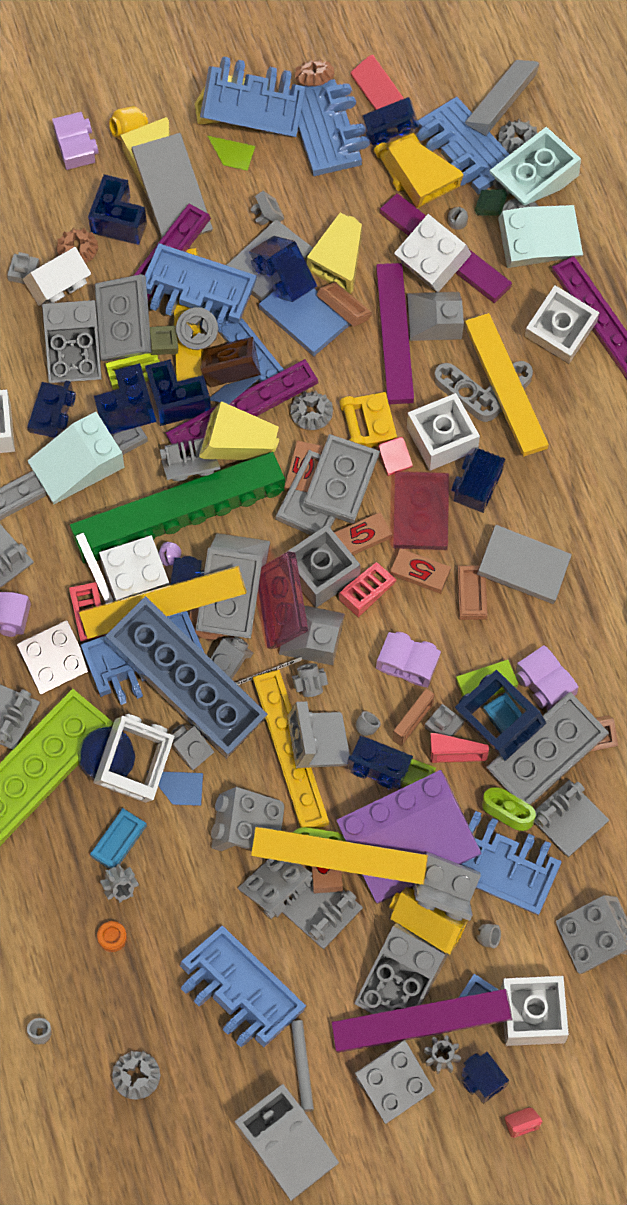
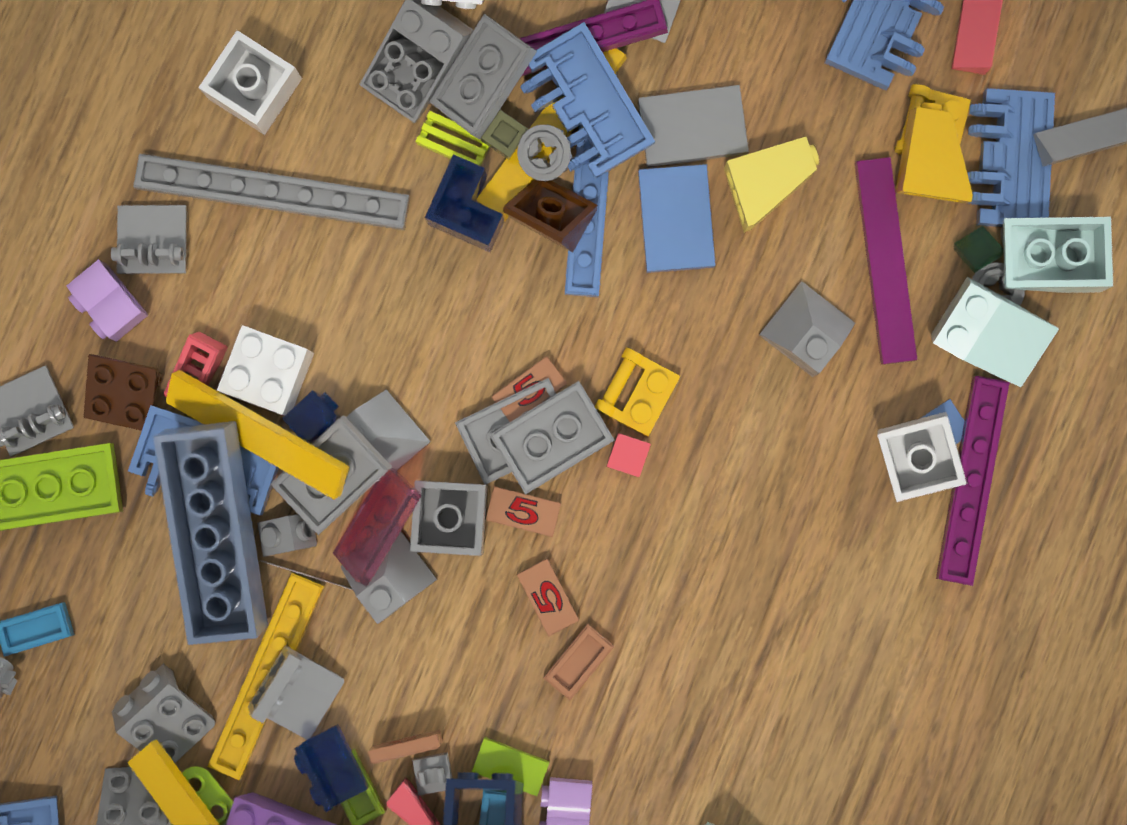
camera: 40 degrees right, 20 degrees up
(51, 409) = (336, 117): clear blue bracket -> none
(77, 458) = (308, 199): light aqua slope -> none
(92, 750) = (86, 538): clear blue tile -> none
(94, 568) = (231, 328): white sticker -> none
(123, 785) = (78, 594): white window -> none
(129, 404) = (409, 182): clear blue brick -> none
(172, 551) = (317, 376): lavender hinge -> none
(181, 467) = (415, 296): light grey hinge -> none
(182, 505) = (366, 332): green brick -> none
(182, 787) = (136, 622): medium blue sticker -> none
(190, 745) = (166, 593): light grey bracket -> none
(233, 390) = (529, 247): medium blue sticker -> none
(237, 435) = (484, 307): light yellow slope -> none
(253, 401) = (523, 275): magenta tile -> none
(268, 207) = (742, 66): light grey tile -> none
(285, 265) = (690, 154): clear blue brick -> none
(310, 680) = (339, 625): light grey gear -> none
(311, 420) = (581, 346): light grey gear -> none
(344, 304) = (724, 242): nougat tile -> none
(359, 607) = (450, 572): coral slope -> none
(367, 723) = (359, 714): light grey hinge -> none
(391, 121) = (957, 68): clear blue bracket -> none
(395, 333) = (749, 315): magenta tile -> none
(408, 659) = (453, 683): lavender brick -> none
(421, 510) = (605, 533): clear pink tile -> none
(433, 253) = (861, 263): white brick -> none
(442, 431) = (695, 473): white brick -> none
(461, 220) = (929, 244): light grey hinge -> none
(478, 480) = (688, 551): clear blue brick -> none
(486, 397) = (783, 467): light grey beam -> none
(506, 385) = (806, 473): yellow tile -> none
(507, 134) = (1065, 202): light grey gear -> none
(524, 564) = (652, 679): light grey tile -> none

